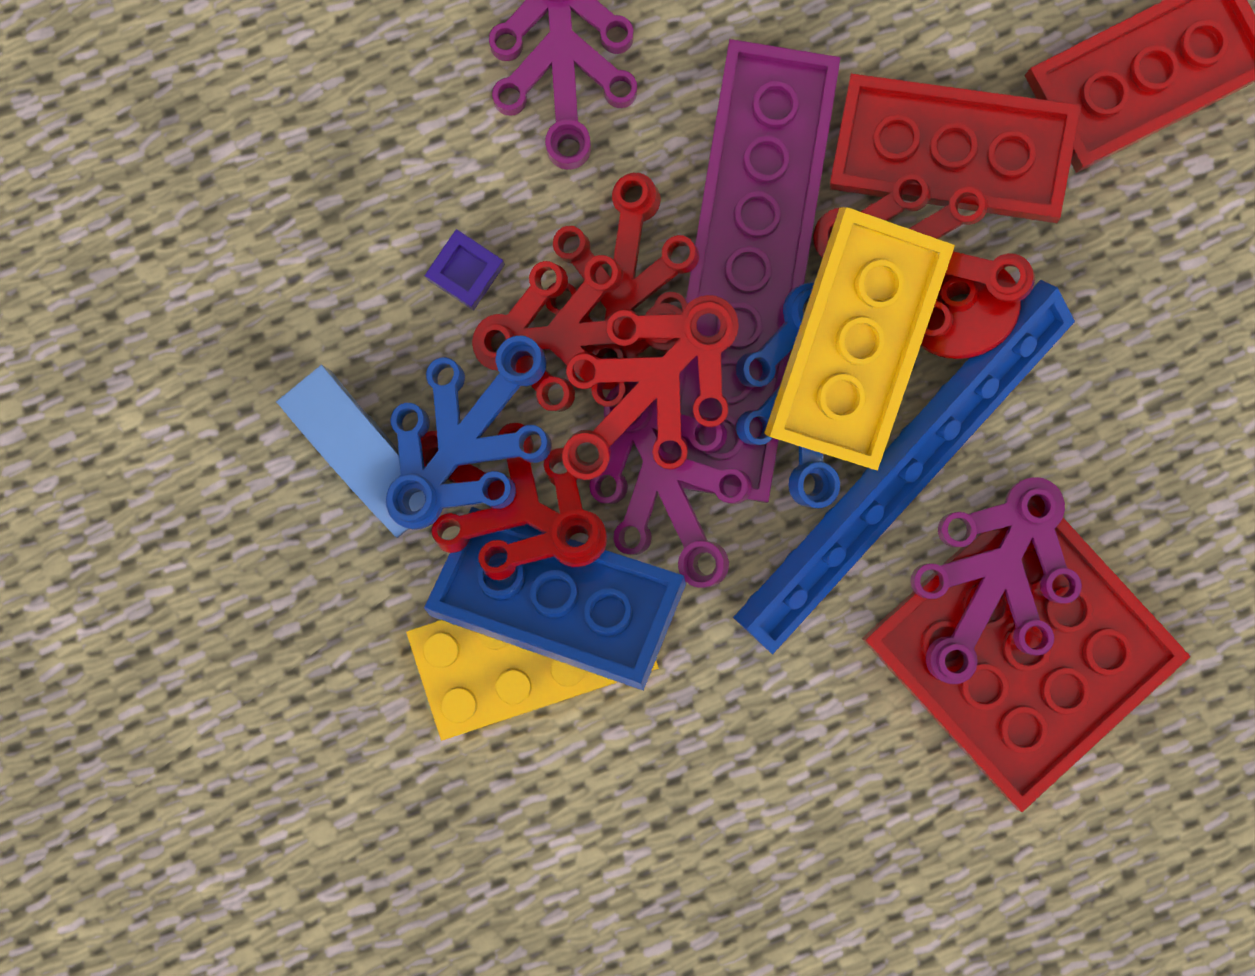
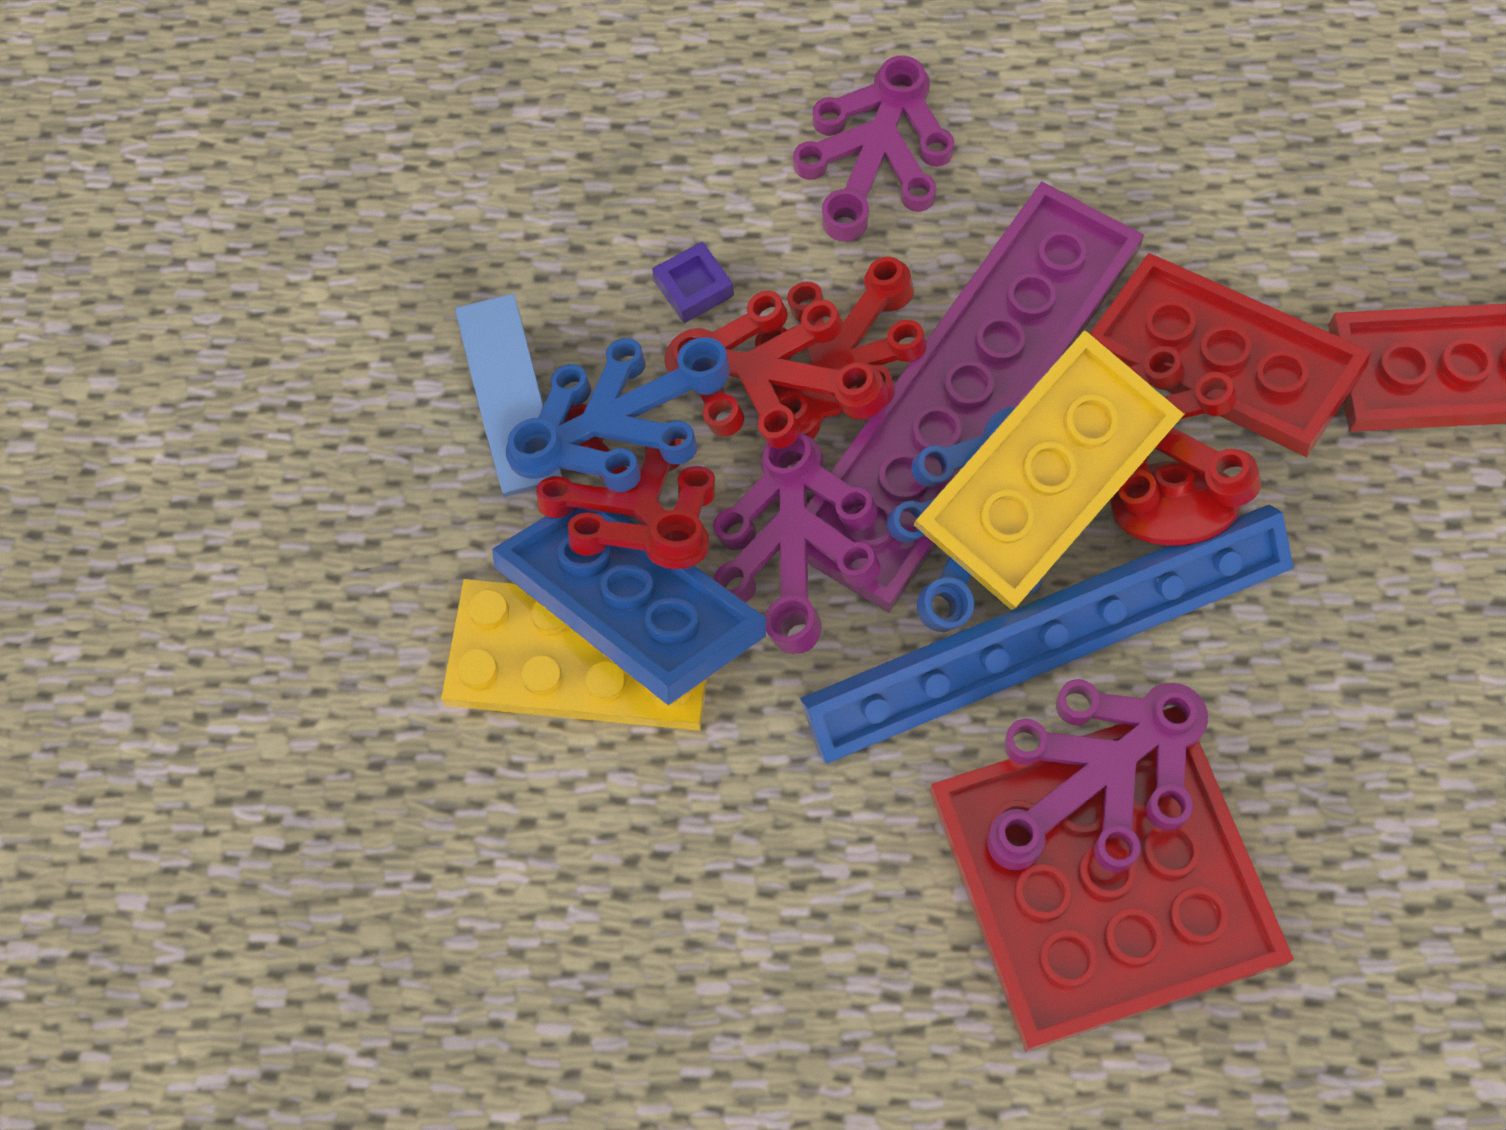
camera: 30 degrees right, 20 degrees down
(656, 379) = (826, 425): red plant -> none

